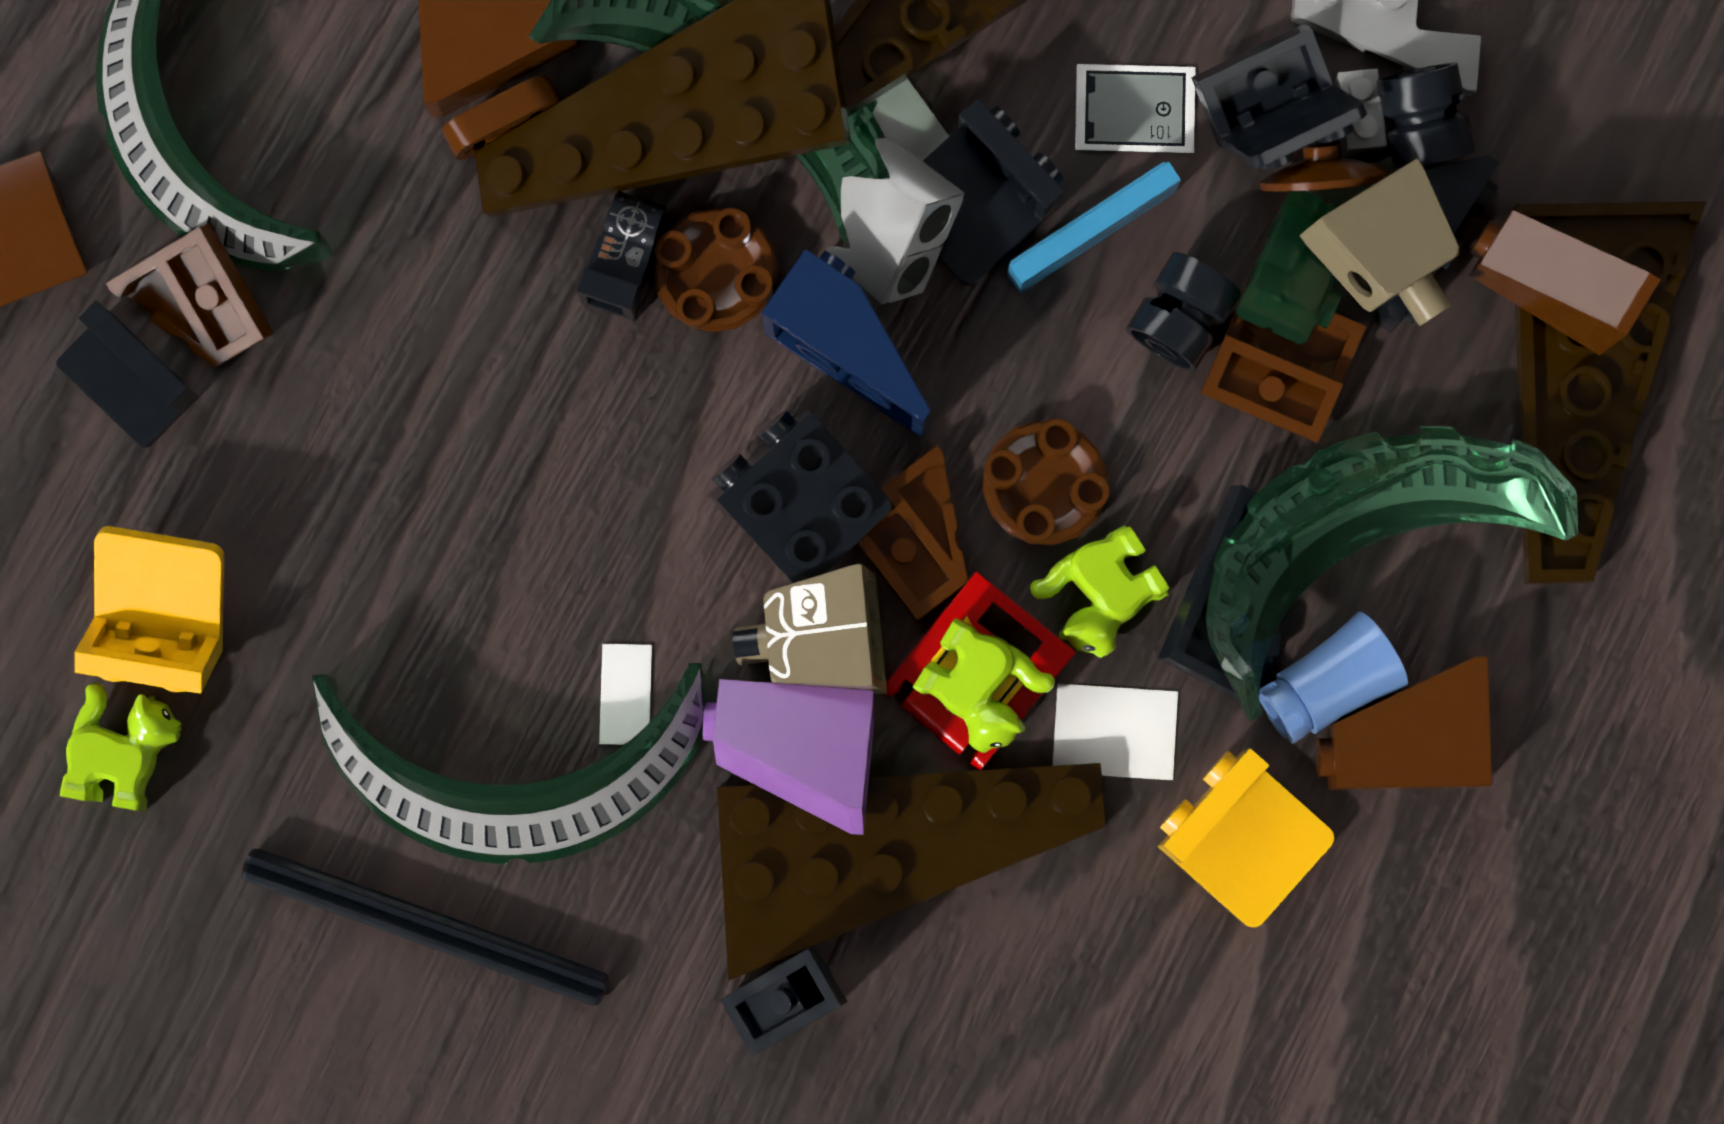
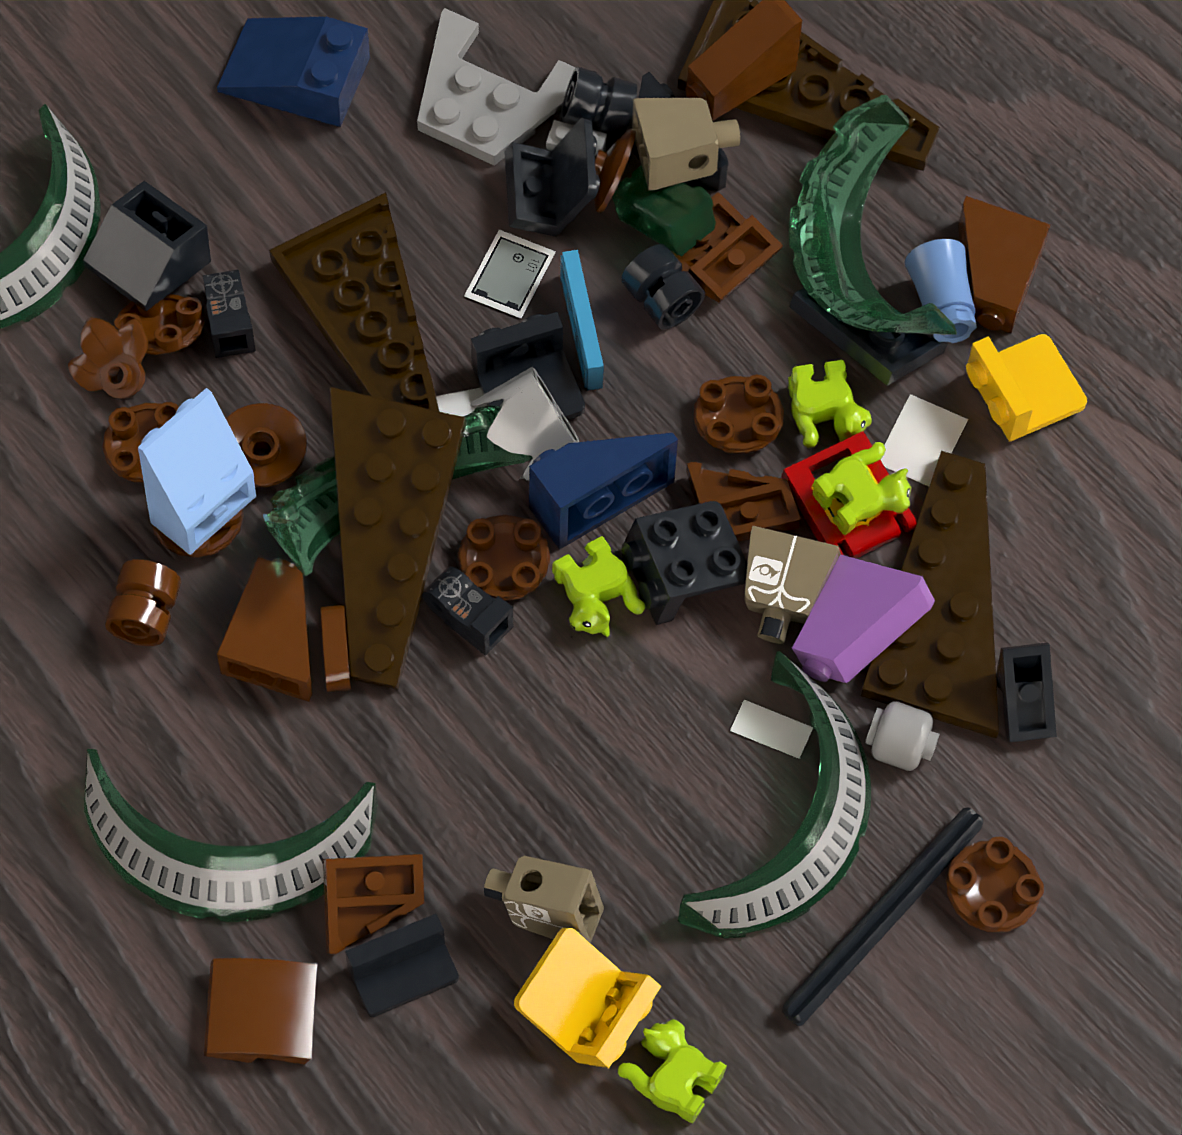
camera: 70 degrees left, 20 degrees down
(264, 513) = (547, 897): none -> dark tan torso
(516, 1048) = (994, 885): none -> reddish brown dish
(669, 861) = (902, 736): none -> light grey head
(727, 401) = (598, 581): none -> lime animal

